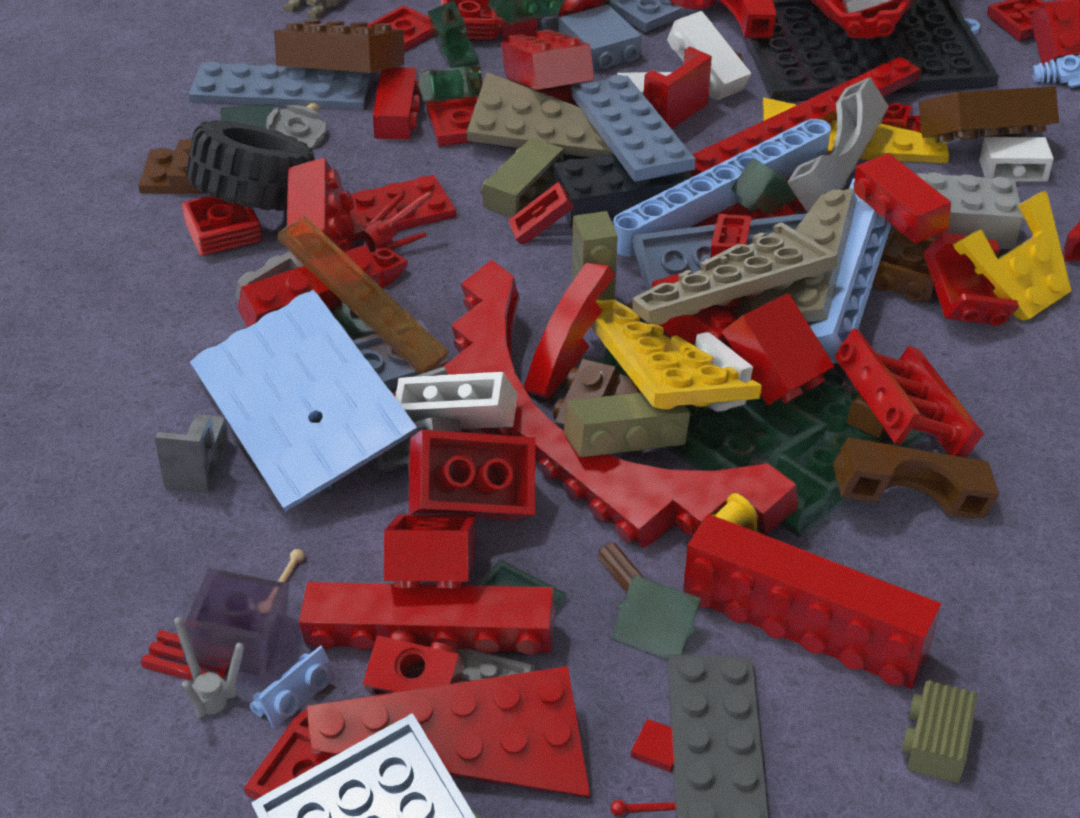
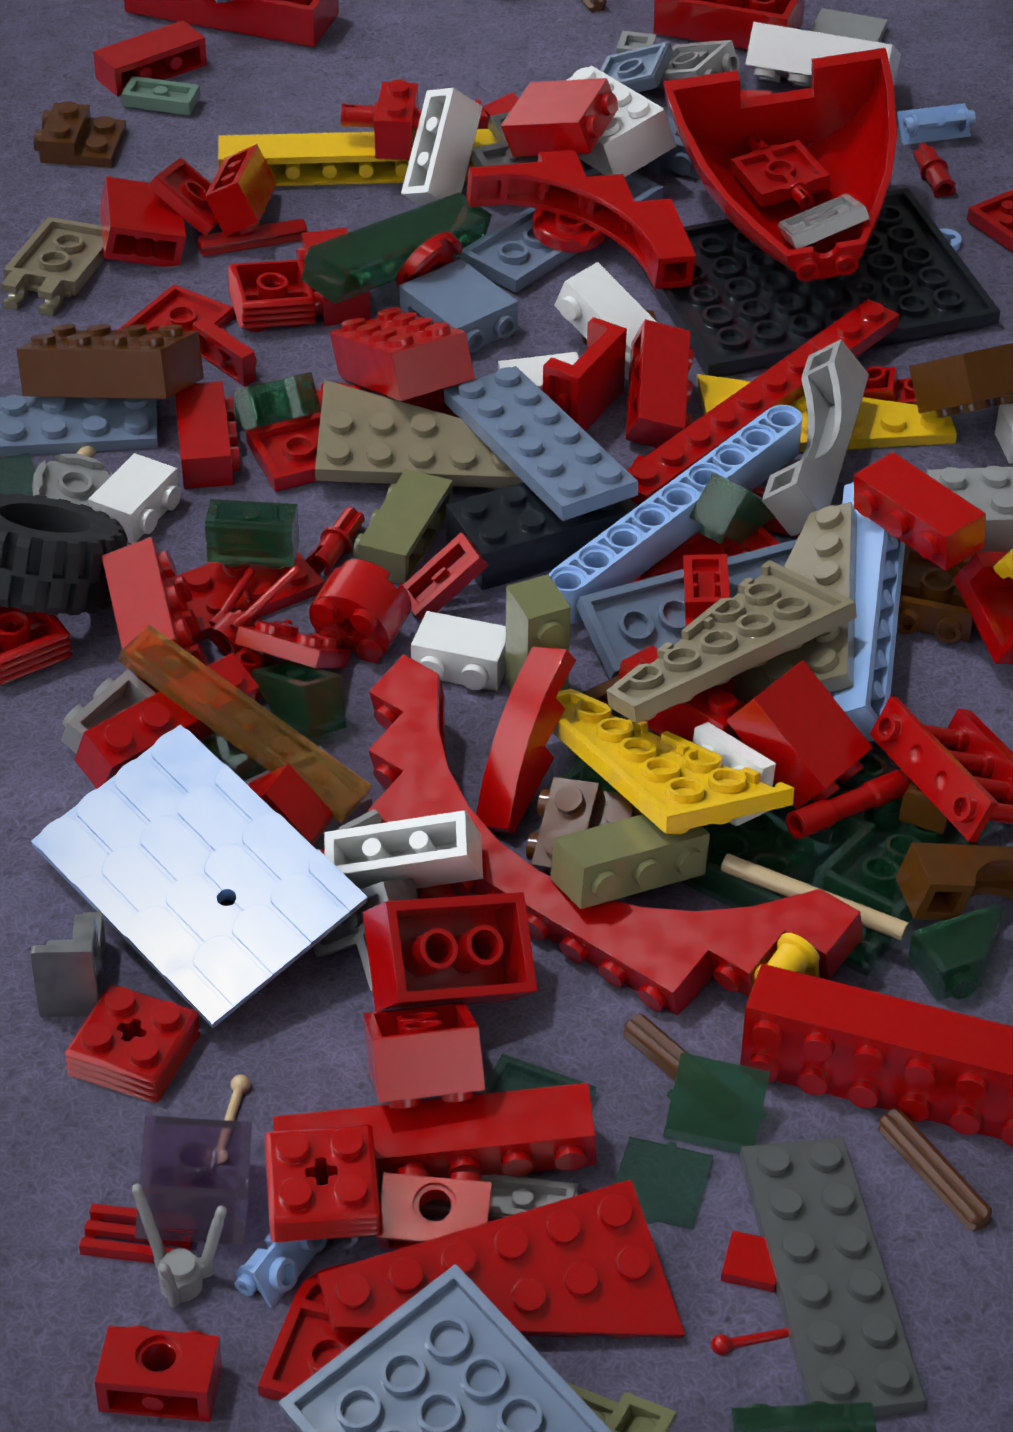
camera: 10 degrees left, 0 degrees up
(169, 766) = (183, 1391): none -> red brick
(224, 516) = (133, 1043): none -> red brick
(337, 137) = (138, 495): none -> white brick
(339, 656) = (312, 1211): none -> red brick
(386, 357) = (294, 801): none -> red slope
(406, 167) = (252, 533): none -> clear green brick
(416, 286) = (303, 697): none -> clear green slope
(418, 247) = (287, 643): none -> red plate
(425, 49) = (226, 352): none -> red plate
(451, 36) = (256, 324): clear green brick -> none
(471, 183) = (336, 541): none -> red axle
(472, 229) = (361, 609): none -> red brick
(540, 265) = (461, 650): none -> white brick
(603, 673) = (665, 1180): none -> piece
(731, 97) = (658, 383): none -> red brick
(745, 459) = (790, 887): none -> tan bar
(788, 410) = (826, 813): none -> red piece
(821, 694) = (935, 1170): none -> reddish brown axle
(872, 527) = (955, 952): none -> clear green slope

